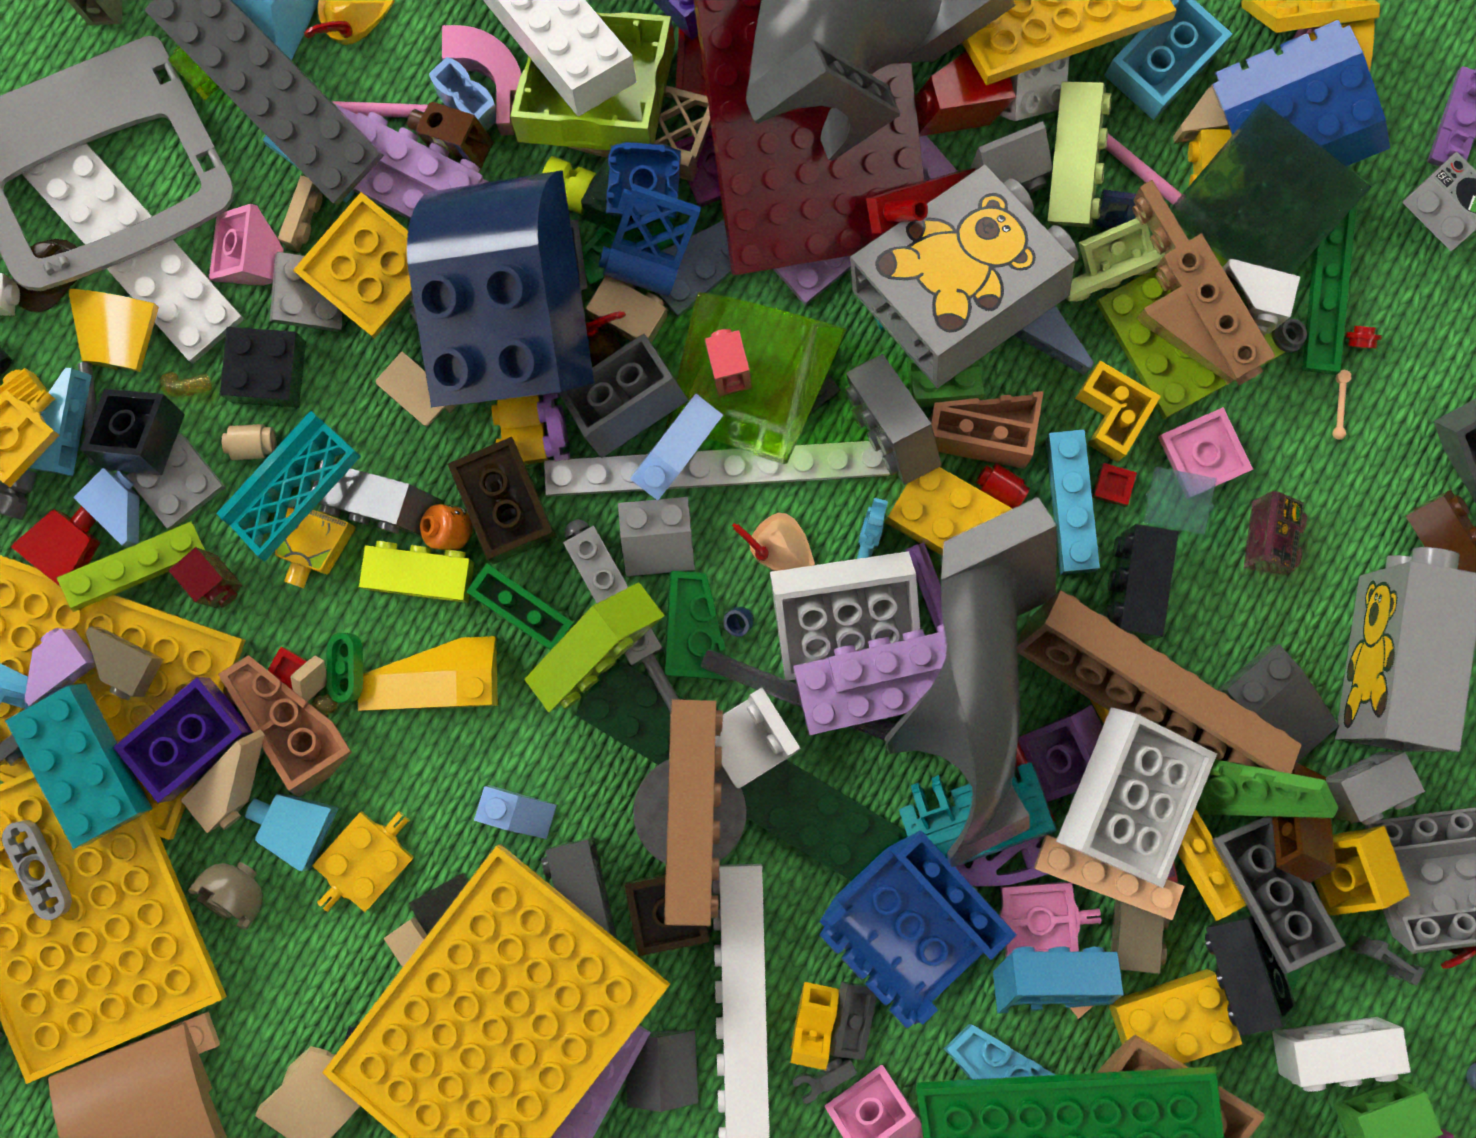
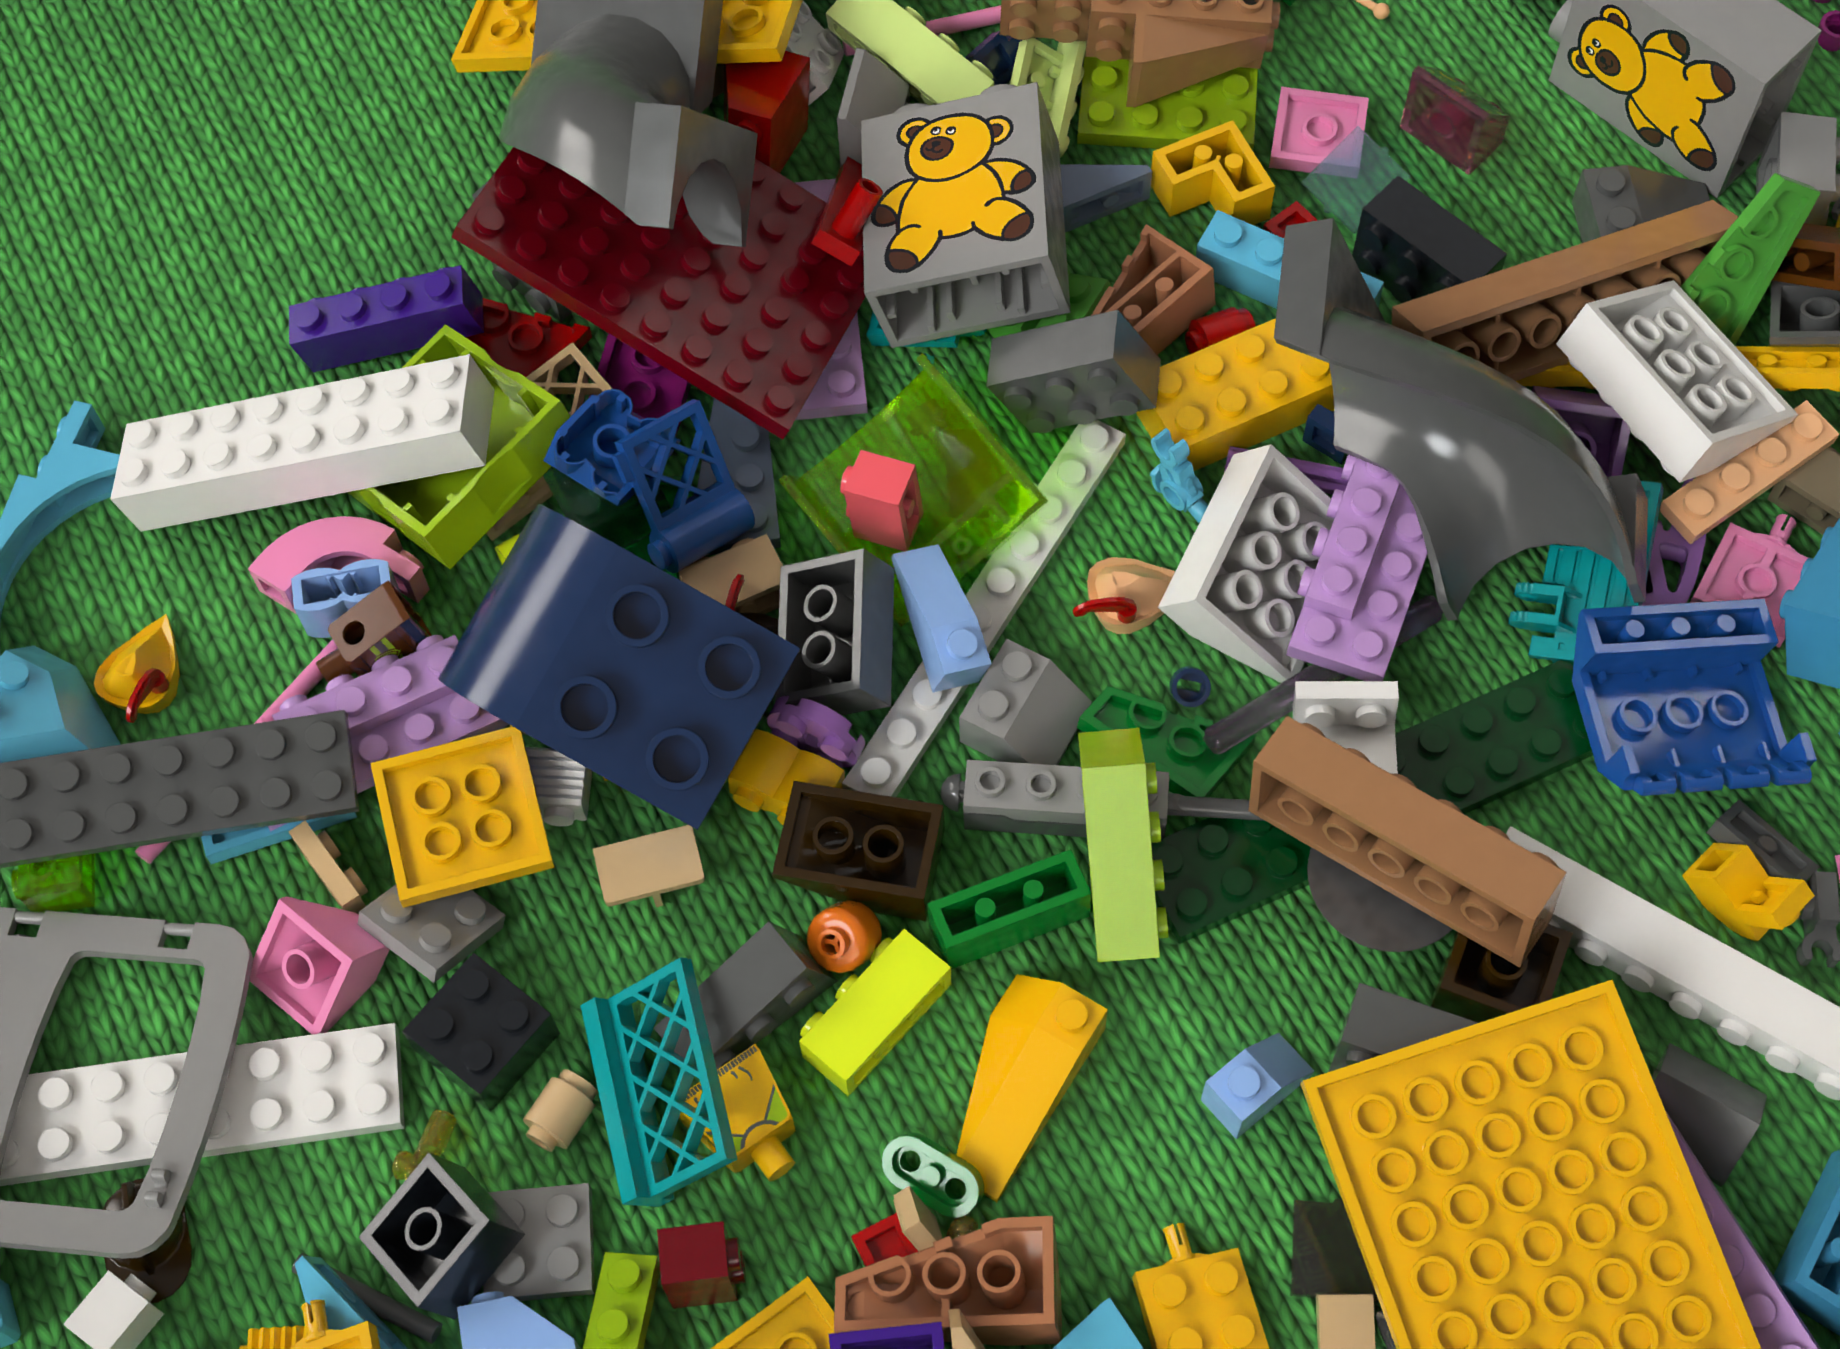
camera: 55 degrees left, 20 degrees down
(112, 328) = (283, 1190): yellow slope -> none

